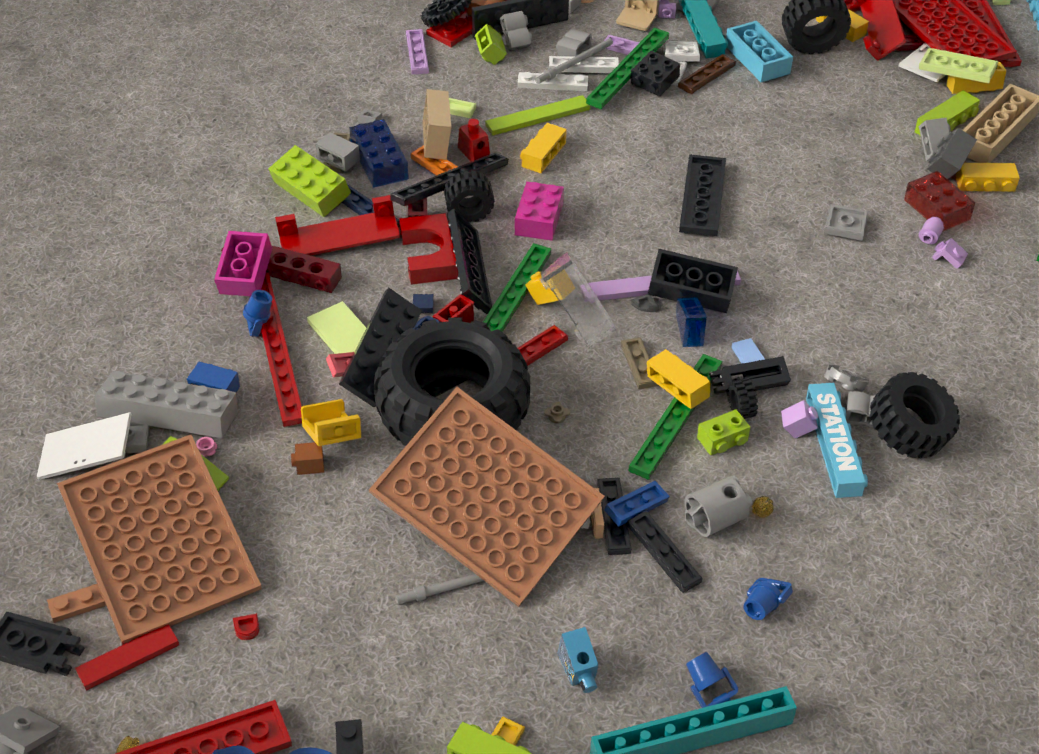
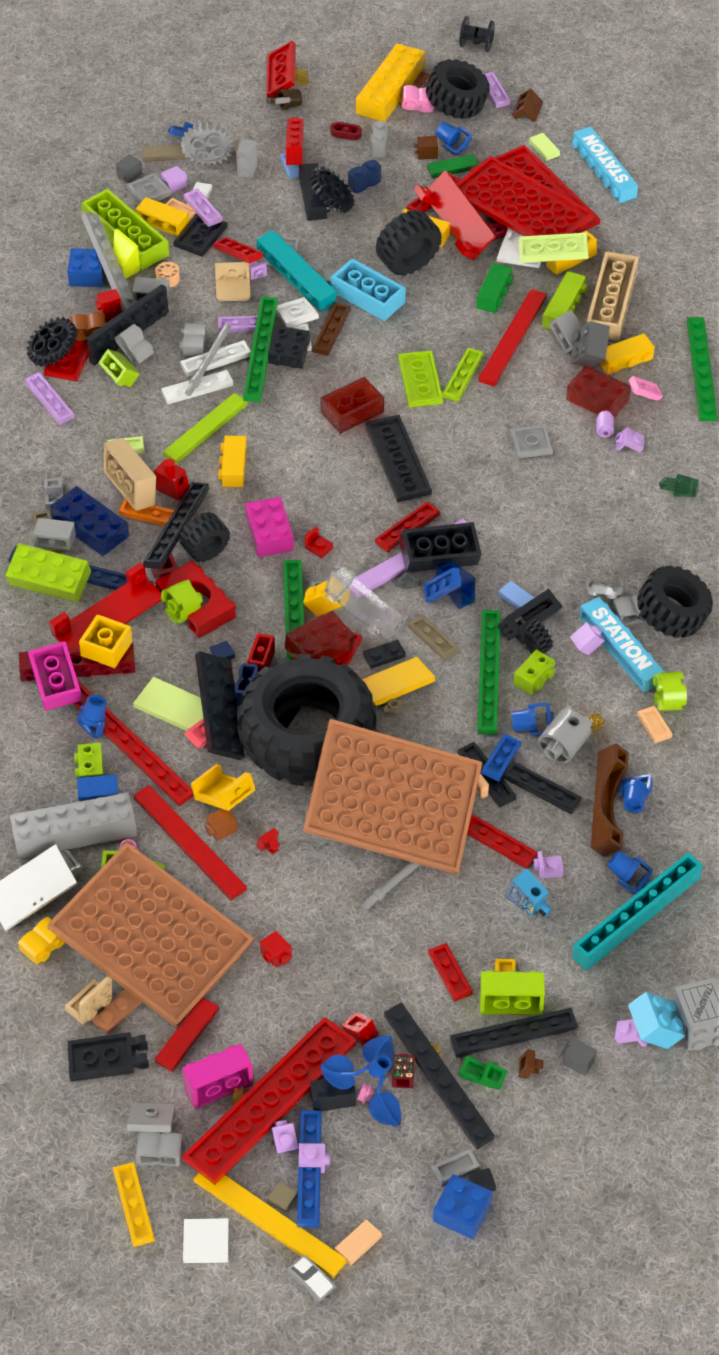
camera: 25 degrees left, 5 degrees up
(49, 504) = (39, 942): none -> yellow brick
(55, 579) = (90, 1000): none -> tan bracket
(114, 714) = (217, 1076): none -> dark pink brick
(228, 352) = (89, 760): none -> lime brick
(246, 626) = (262, 974): red tile -> none
(269, 467) = (190, 843): none -> red tile
(274, 606) = (275, 949): none -> red brick
(306, 730) = (360, 1027): none -> red bracket
(310, 249) = (105, 641): none -> yellow brick
(344, 493) = (269, 841): none -> red tile
(410, 242) = (181, 601): none -> lime brick
(444, 709) = (450, 972): none -> red tile
(469, 261) = (242, 599): black plate -> none
(522, 320) = (320, 637): none -> clear red brick
(571, 389) = (398, 680): none -> yellow tile
(577, 240) = (317, 544): none -> red bracket
(580, 360) = (384, 654): none -> black plate
(586, 591) = (501, 842): none -> red tile
(622, 638) = (548, 866): none -> lavender bracket
(672, 313) = (442, 585): none -> blue plate
(678, 378) = (477, 640): yellow brick -> none
(684, 135) = (352, 405): none -> clear red brick
(689, 475) = (526, 719): none -> blue piece
(700, 250) = (416, 519): none -> red tile
(708, 623) = (611, 767): none -> reddish brown arch
(766, 137) = (420, 378): none -> lime tile
(810, 146) = (463, 374): none -> lime tile
(829, 534) = (654, 724): none -> light nougat tile
(862, 504) = (670, 691): none -> lime brick
(878, 131) = (512, 337): none -> red tile
(883, 85) = (494, 288): none -> green brick
(983, 310) = (681, 485): none -> clear green piece
(990, 211) = (645, 388): none -> bright pink plate

